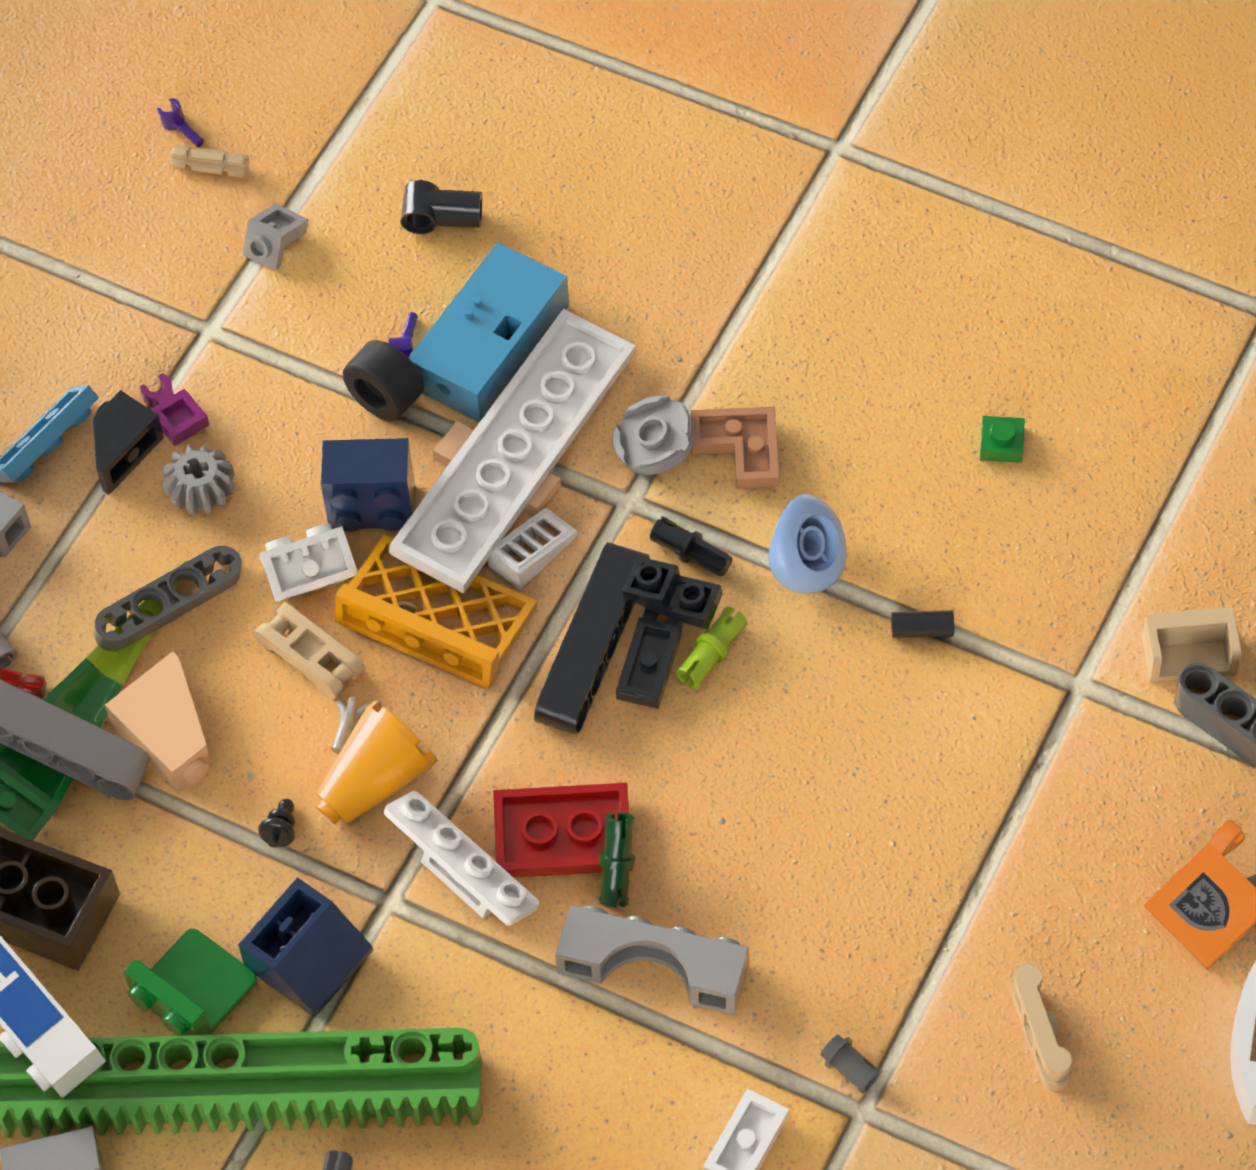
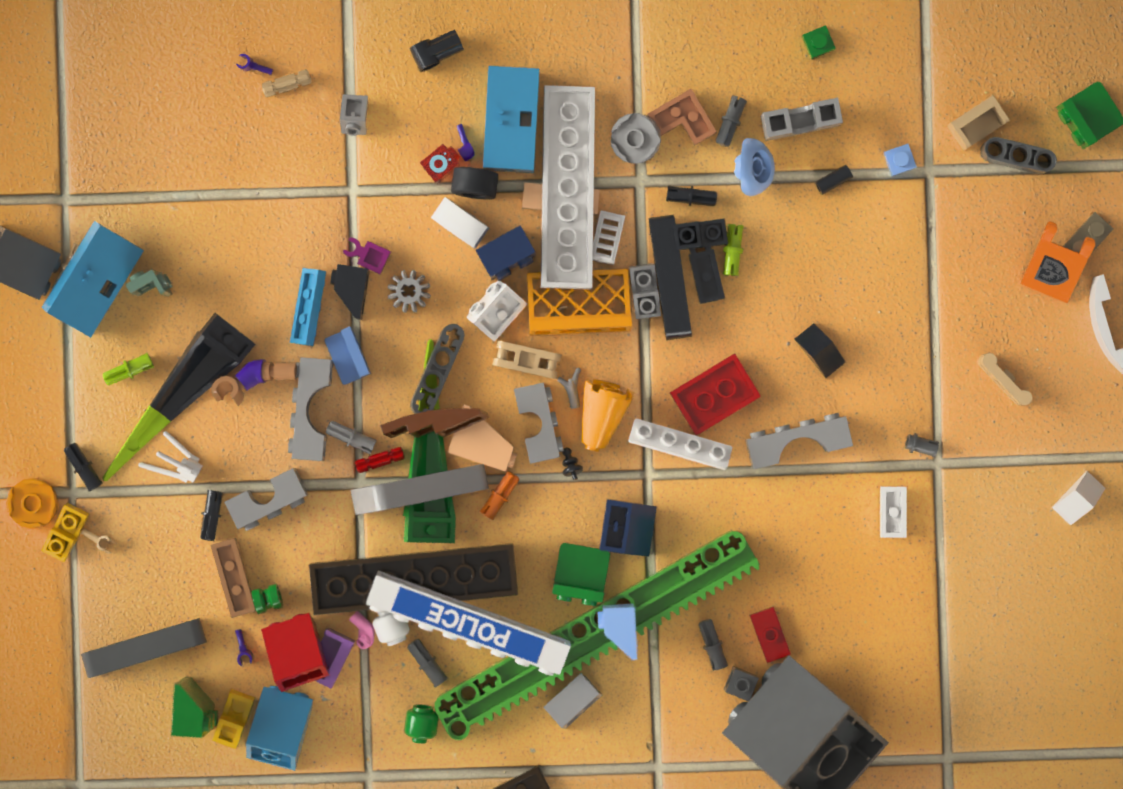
camera: 30 degrees left, 30 degrees up
(56, 525) = (347, 356): none -> medium blue panel
(123, 649) = (441, 421): none -> reddish brown slope
(144, 814) = (500, 495): none -> orange axle
(198, 1058) = (620, 626): none -> light blue slope
(258, 771) = (535, 400): none -> light grey arch
(326, 417) = (460, 222): none -> white slope
(347, 336) = (441, 163): none -> clear red brick
(541, 641) = (645, 291): none -> light grey slope
(616, 859) = (755, 402): dark green pin -> none
(766, 851) = (820, 350): none -> black slope
(811, 476) = (730, 121): none -> dark grey axle
(886, 511) = (801, 120): none -> light grey arch
(1041, 645) = (900, 159): none -> light blue plate

